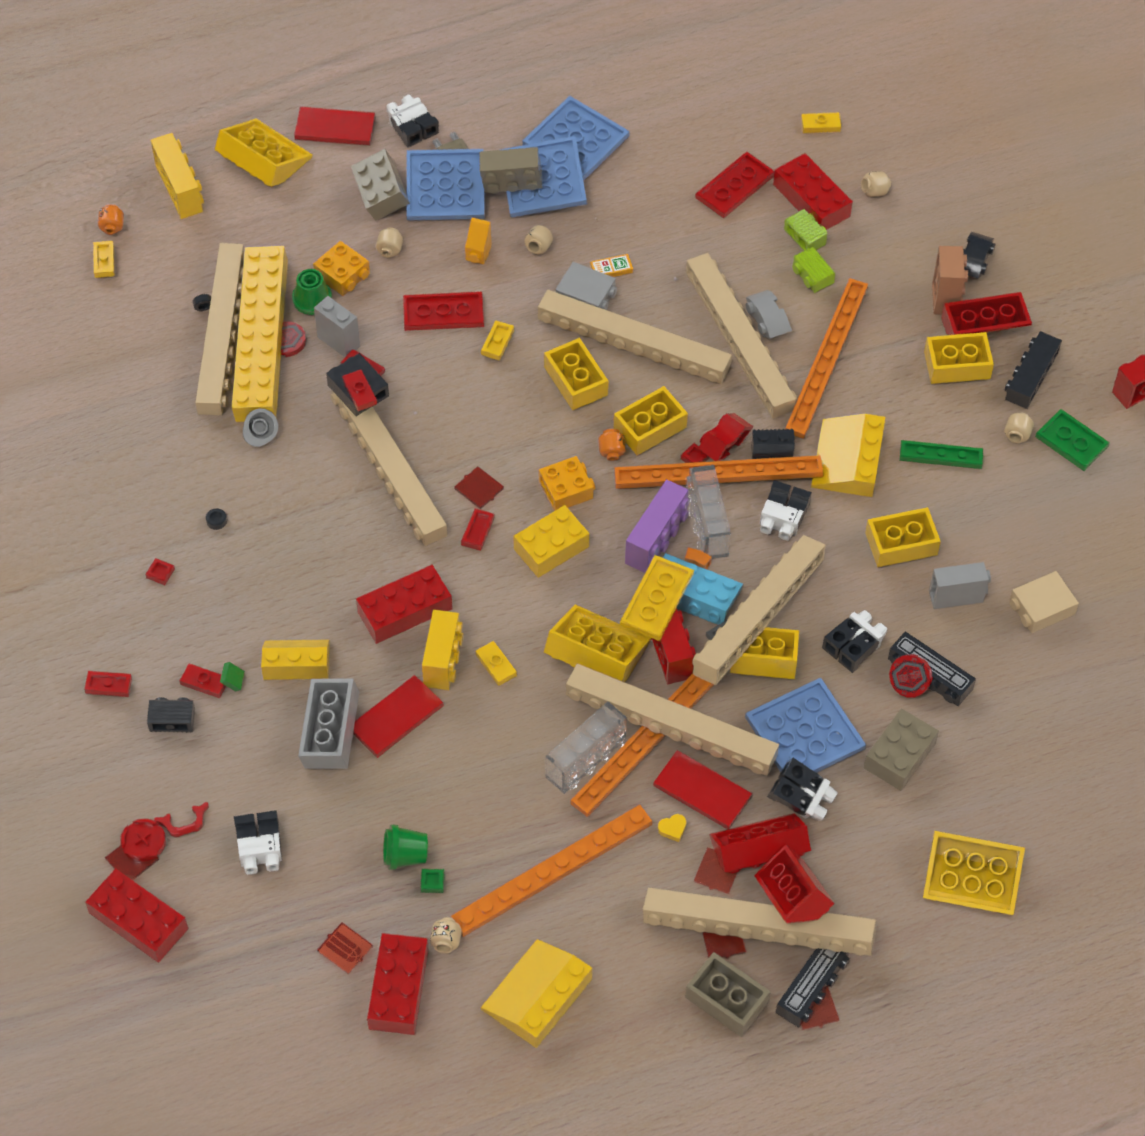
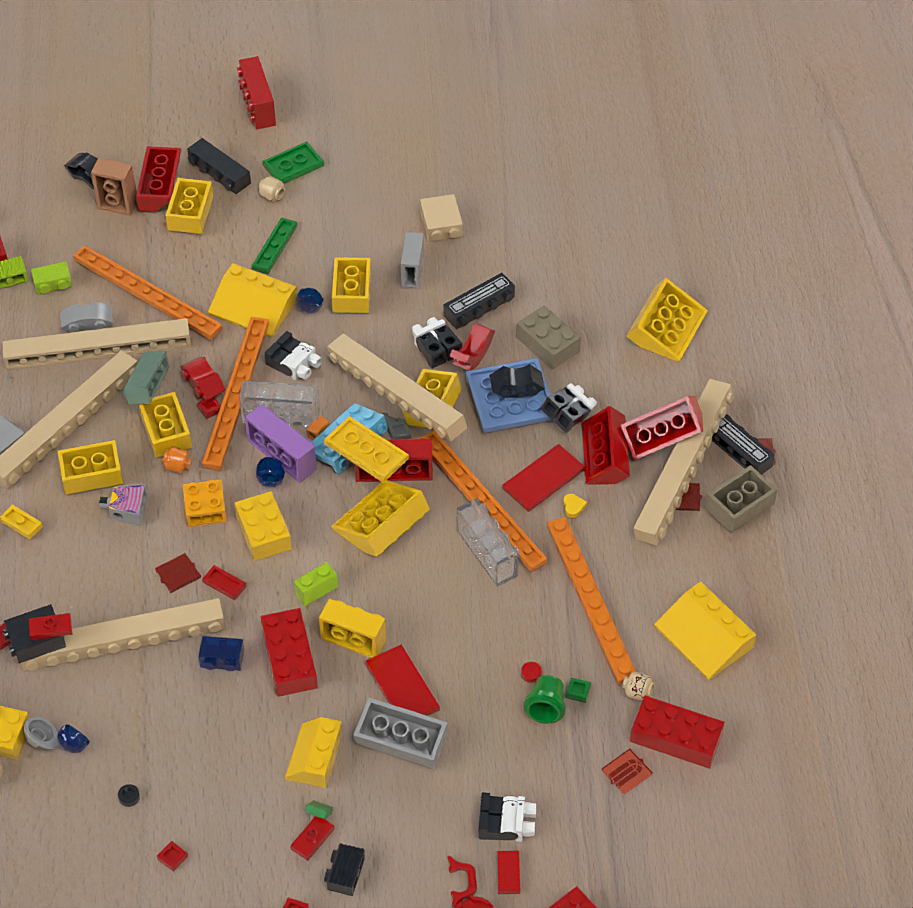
camera: 75 degrees left, 5 degrees down
(201, 860) = (508, 872): none -> red tile
(261, 454) = (72, 739): none -> clear blue hair
(388, 548) = (221, 653): none -> clear blue brick
(442, 831) = (531, 672): none -> red tile
(492, 606) = (315, 584): none -> lime brick
(496, 663) = (372, 597): yellow plate -> none
(545, 419) = (126, 503): none -> light grey torso
(619, 528) = (270, 471): none -> clear blue hair
(673, 720) = (478, 476): tan brick -> none
(699, 385) = (146, 377): none -> sand green brick
(712, 875) = (623, 490): clear red piece -> none
(772, 443) = (223, 347): black brick -> none
(814, 728) = (517, 381): none -> black brick
(853, 679) = (474, 349): none -> red arch
(868, 504) = (309, 300): none -> clear blue hair
(910, 675) = (484, 311): tile -> none

